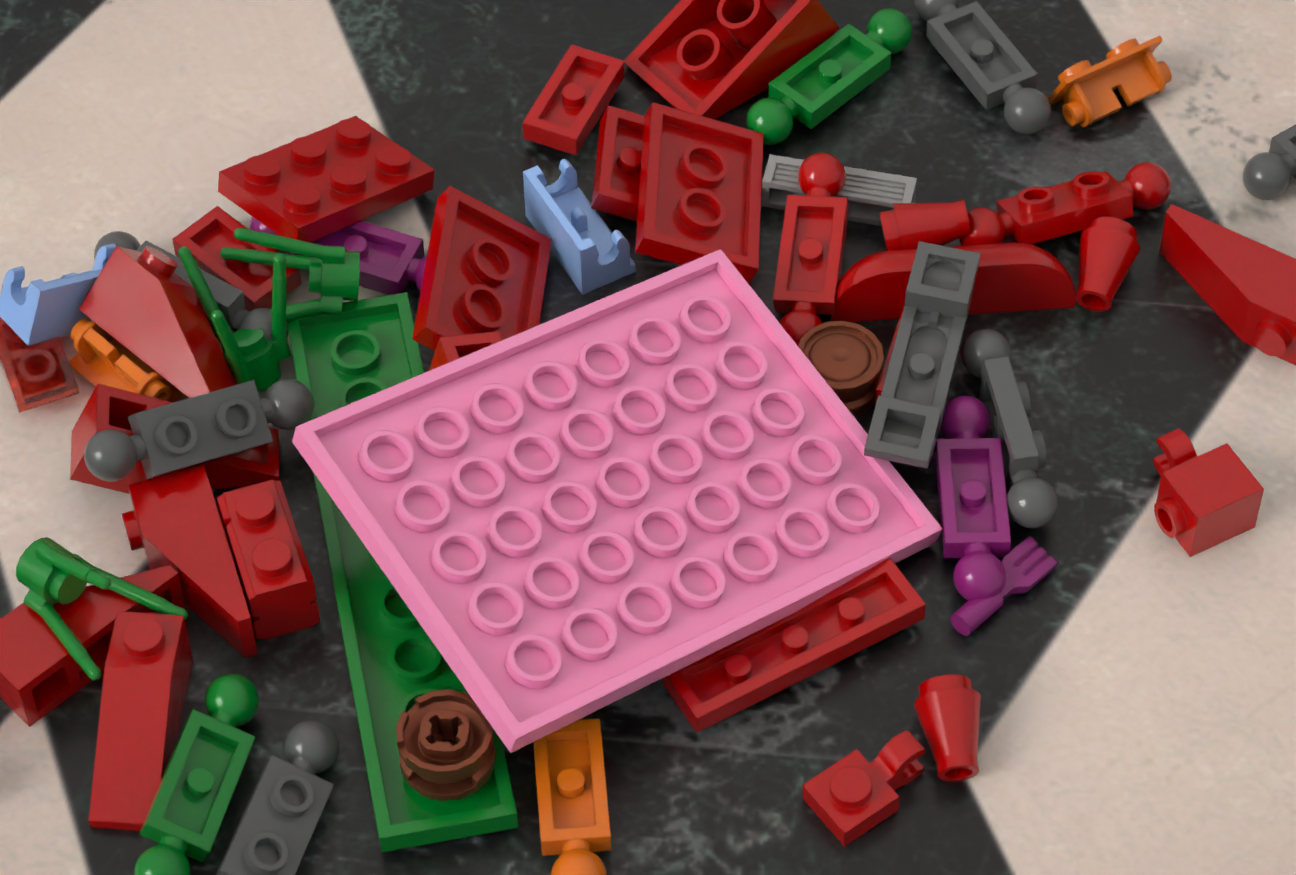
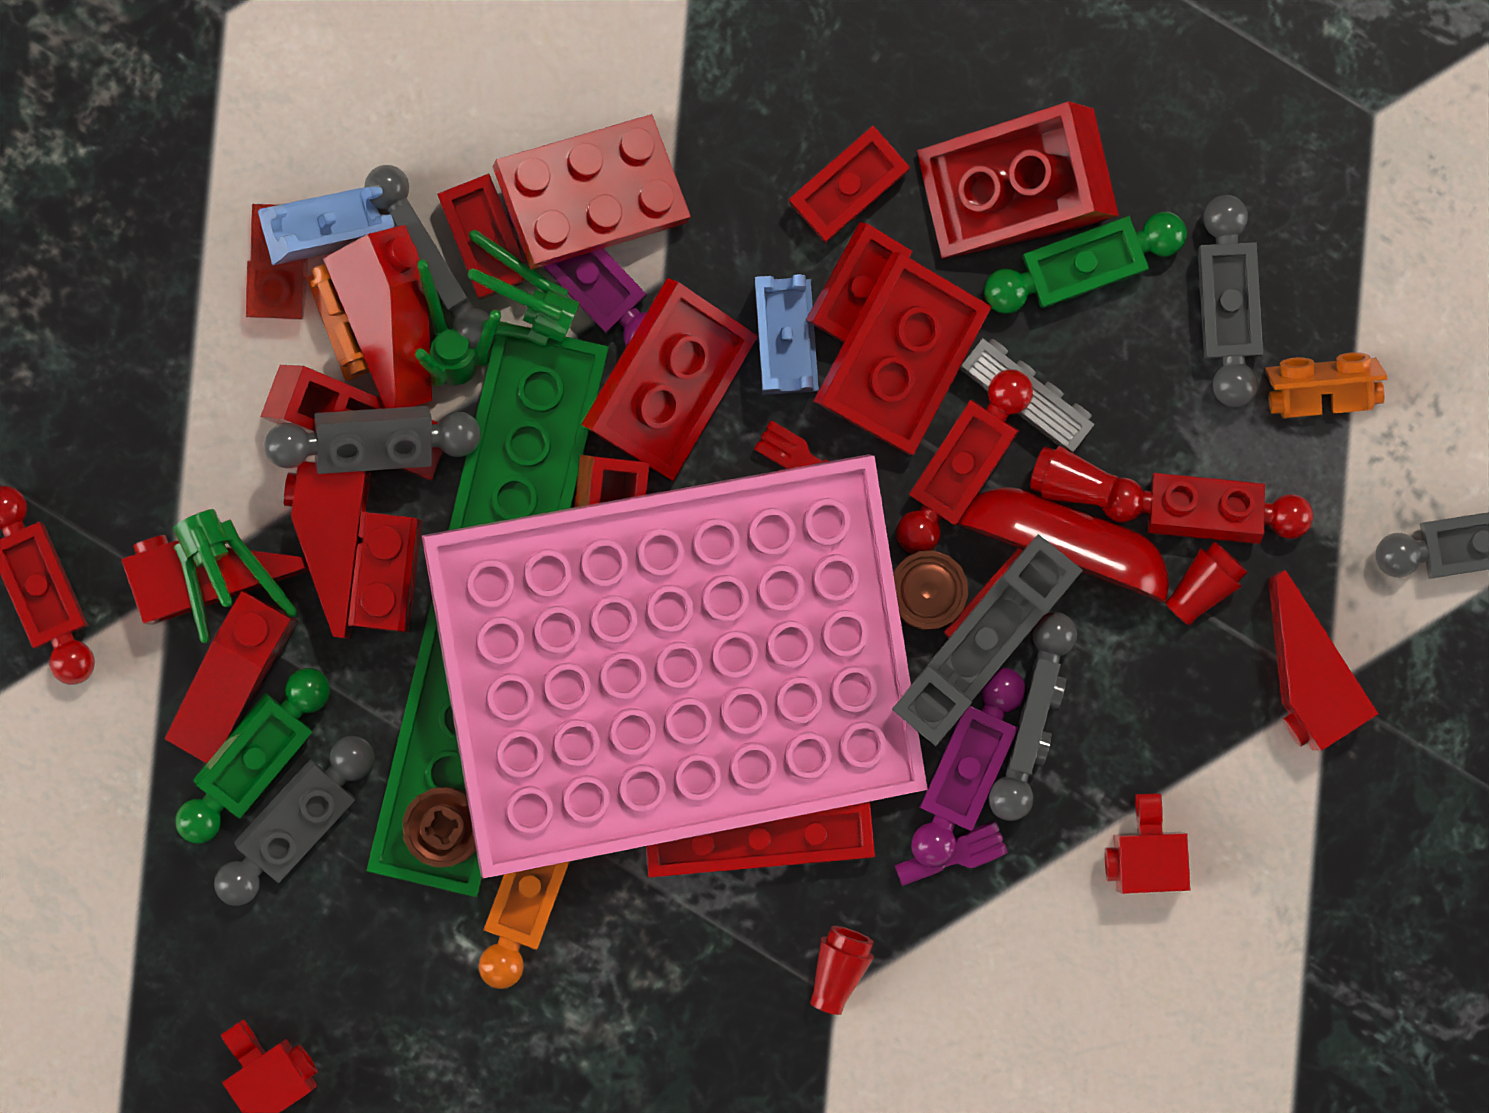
camera: 25 degrees right, 35 degrees up
(861, 794) = (741, 987): red plate -> none

